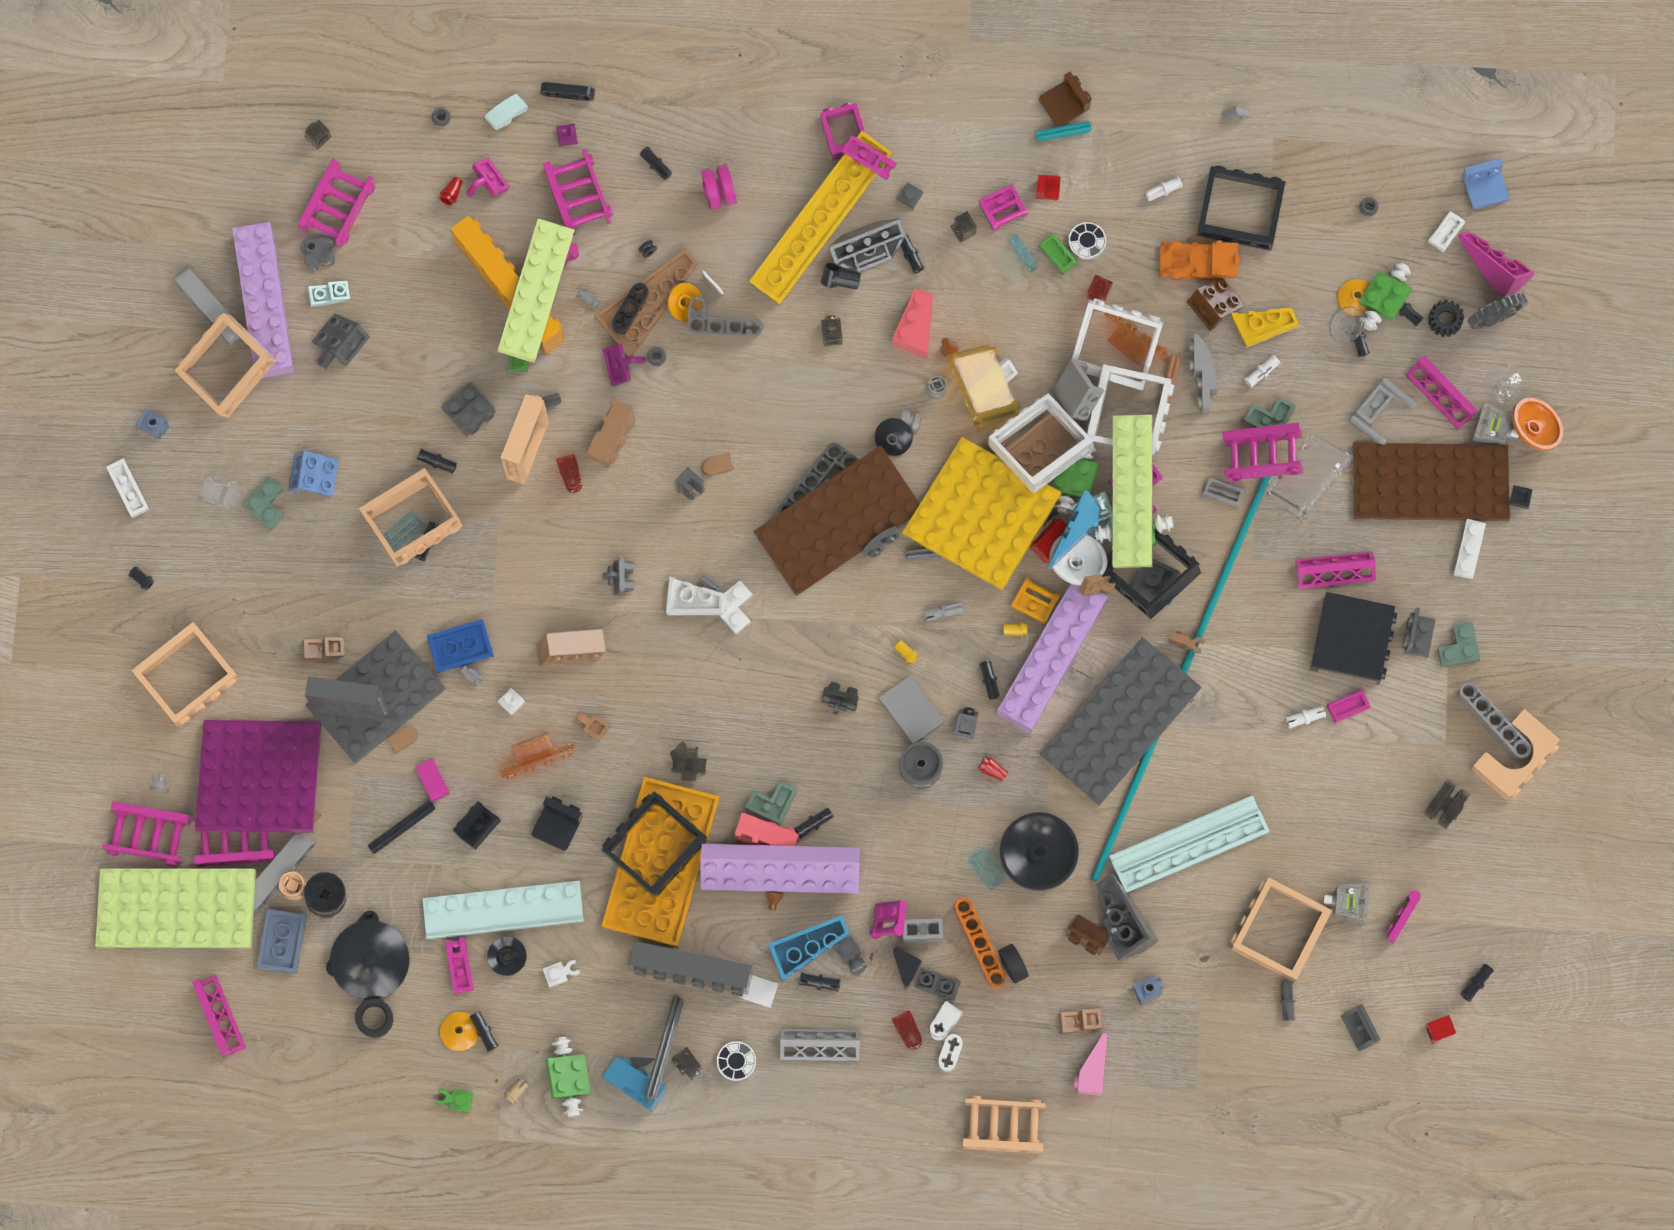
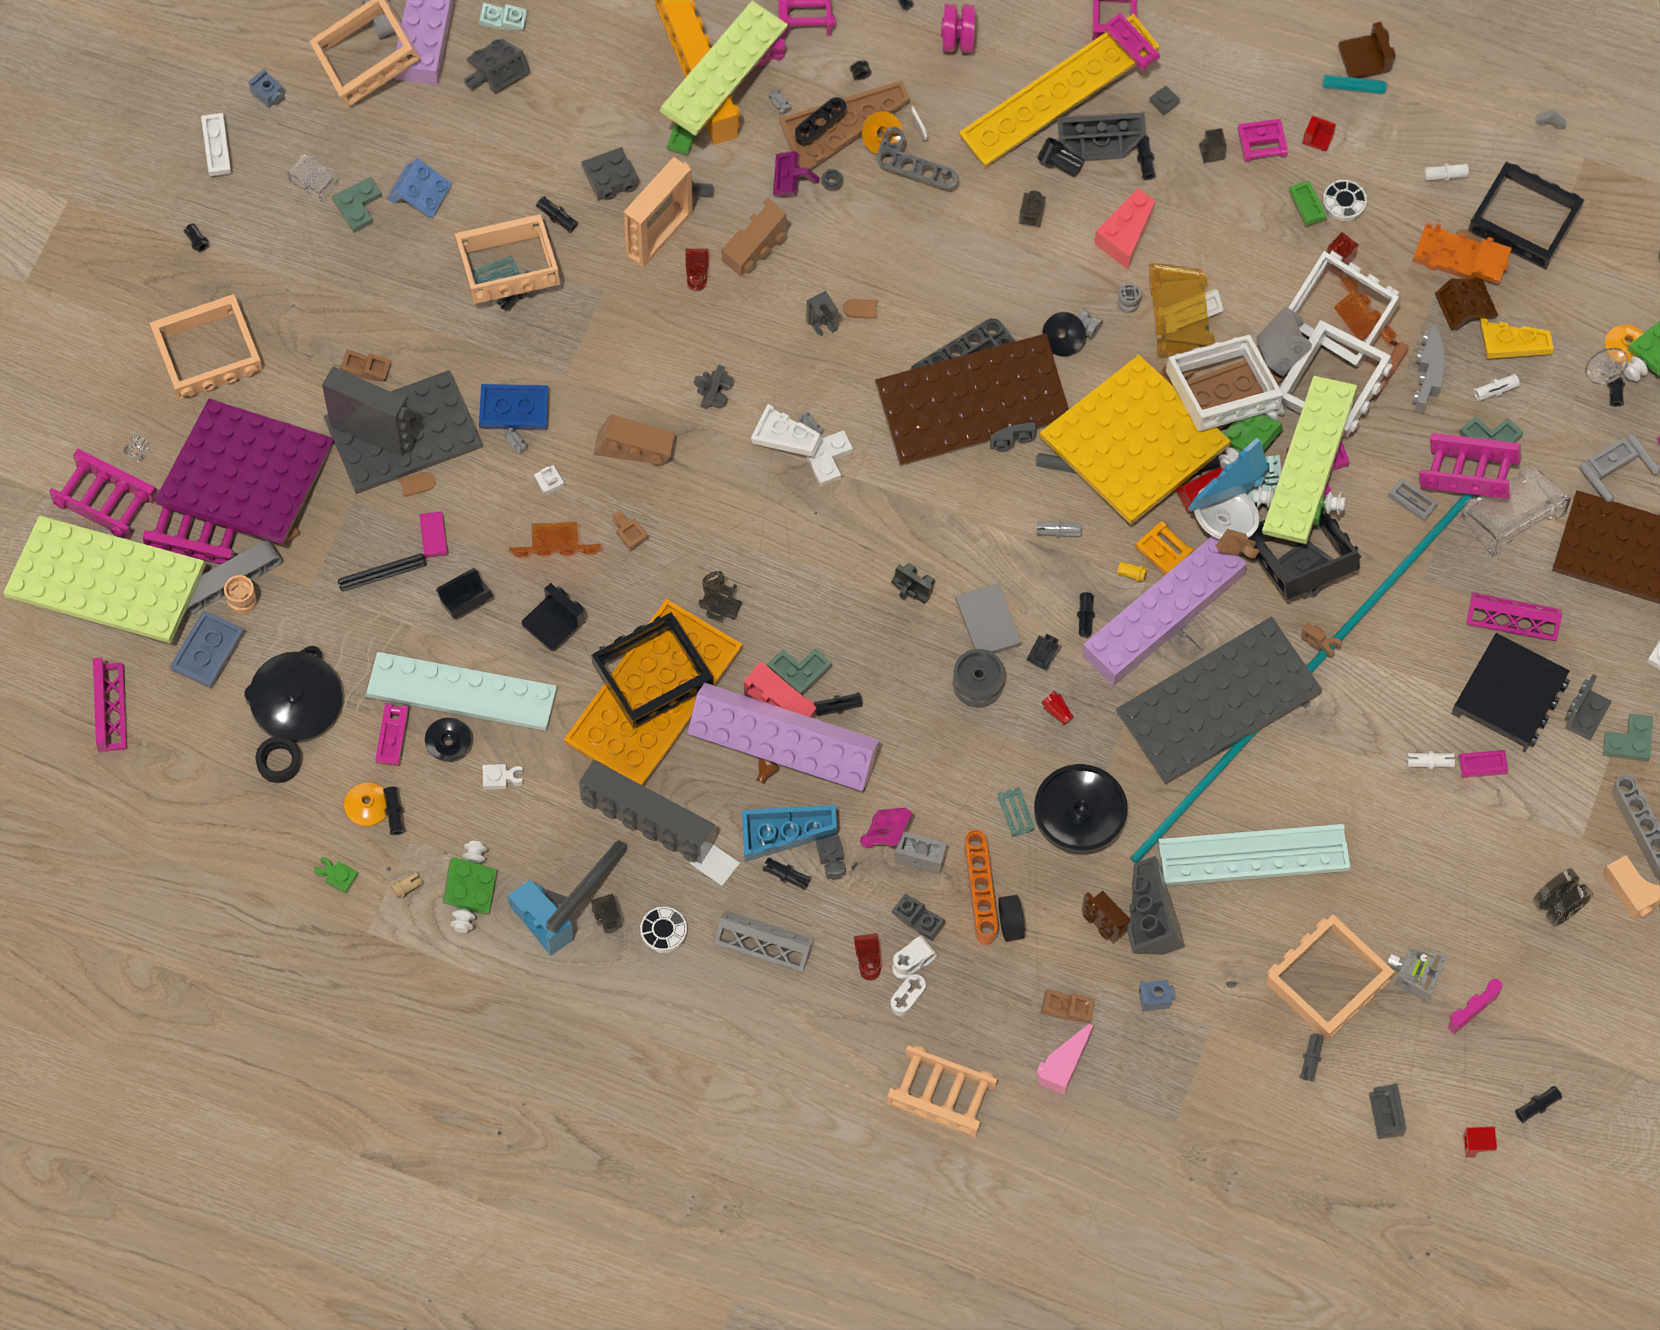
camera: 15 degrees right, 10 degrees down
(314, 890) = (268, 601): black wheel -> none
(906, 652) = (1005, 563): yellow pin -> none
(907, 965) = (892, 886): black slope -> none
(948, 347) = (1154, 258): dark orange rock -> none
(1023, 252) = (1269, 190): clear light blue tile -> none

